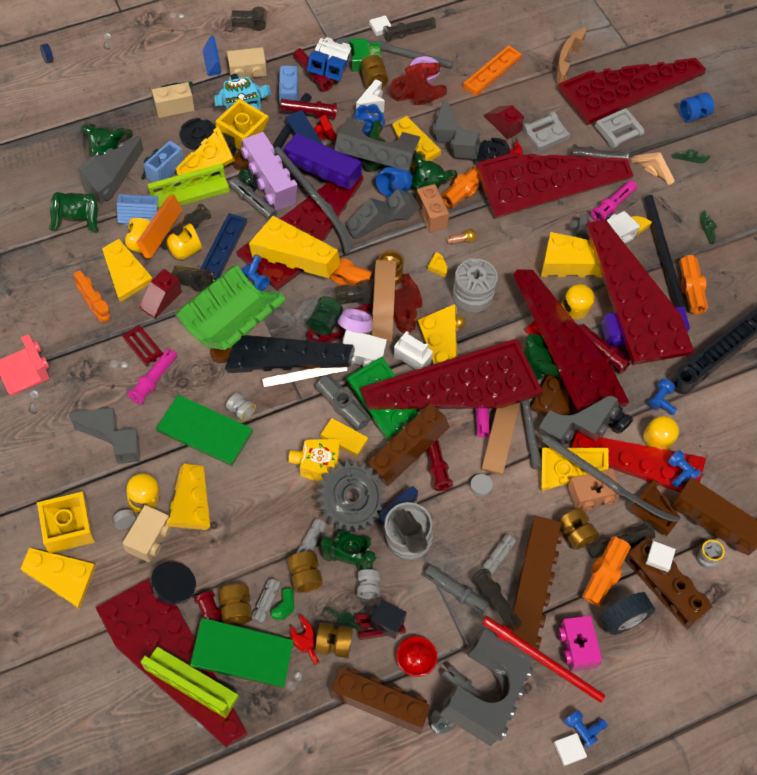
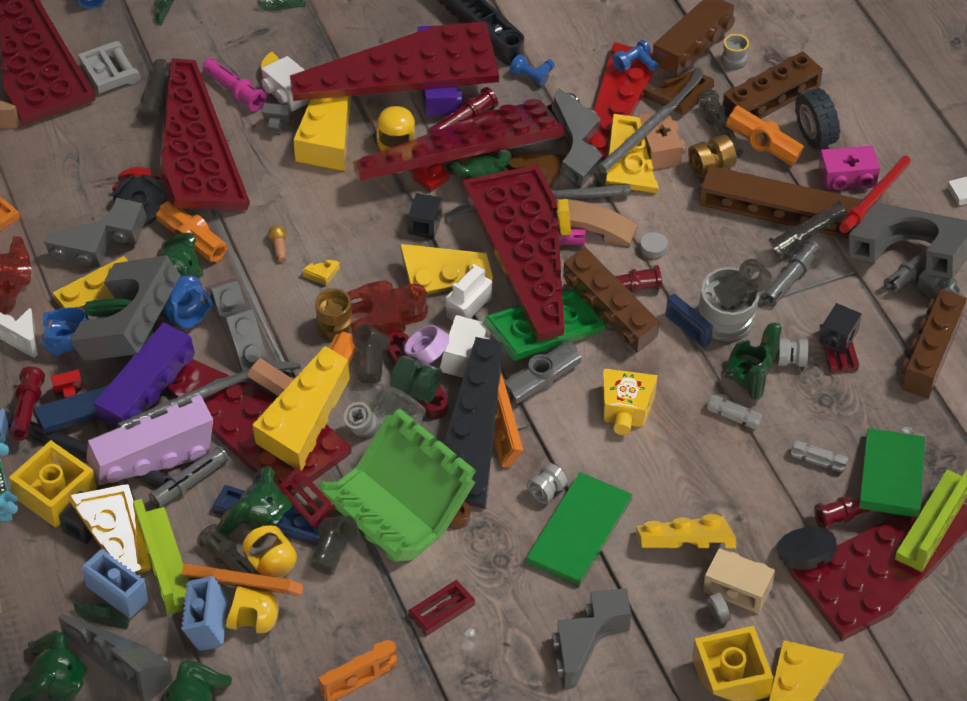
camera: 85 degrees left, 10 degrees down
(125, 270) = (305, 635): yellow wing -> none
(143, 489) = (680, 580): yellow helmet -> none
(147, 383) = (507, 593): dark pink pin -> none
(160, 293) = (357, 583): dark red slope -> none
(195, 131) = (47, 554): black tile -> none
(225, 233) = (254, 505): none -> dark green hair
(228, 259) = (320, 511): none -> dark red tile
(235, 601) = (826, 481): pearl gold wheel -> none
(245, 176) = (149, 481): clear green piece -> none
(260, 282) = (341, 464): blue piece -> none
(286, 608) = (815, 435): green arm -> none
(295, 288) = (362, 426): none -> light grey wheel
(305, 571) = (787, 410): pearl gold wheel -> none
(306, 641) = (865, 416): red hand -> none
(330, 231) = (269, 377): none -> nougat tile
(335, 501) = (681, 362): dark grey gear -> none
(342, 643) = (867, 384): pearl gold wheel -> none
(345, 619) = (837, 378): clear green piece -> none
(350, 440) = (588, 377): yellow tile -> none
(384, 299) = (360, 304): medium nougat slope -> none
(416, 656) = (878, 311): red hat -> none
(432, 208) = (232, 262): nougat brick -> none
(474, 285) = (368, 225): light grey wheel -> none
(491, 411) = (564, 217): none -> yellow tile
(494, 324) = (425, 215): none -> black brick
(499, 553) = (743, 233): light grey axle -> none
(506, 120) = (77, 181): dark red slope -> none
(548, 136) = (108, 139): light grey plate -> none
(589, 734) = (934, 181): blue piece -> none
(654, 164) = (179, 38): light nougat tile -> none
(660, 556) = (752, 80): white tile -> none
(661, 432) = (589, 69): yellow helmet -> none
(664, 252) = (308, 47): black piece -> none
(693, 284) = (372, 23): orange piece -> none

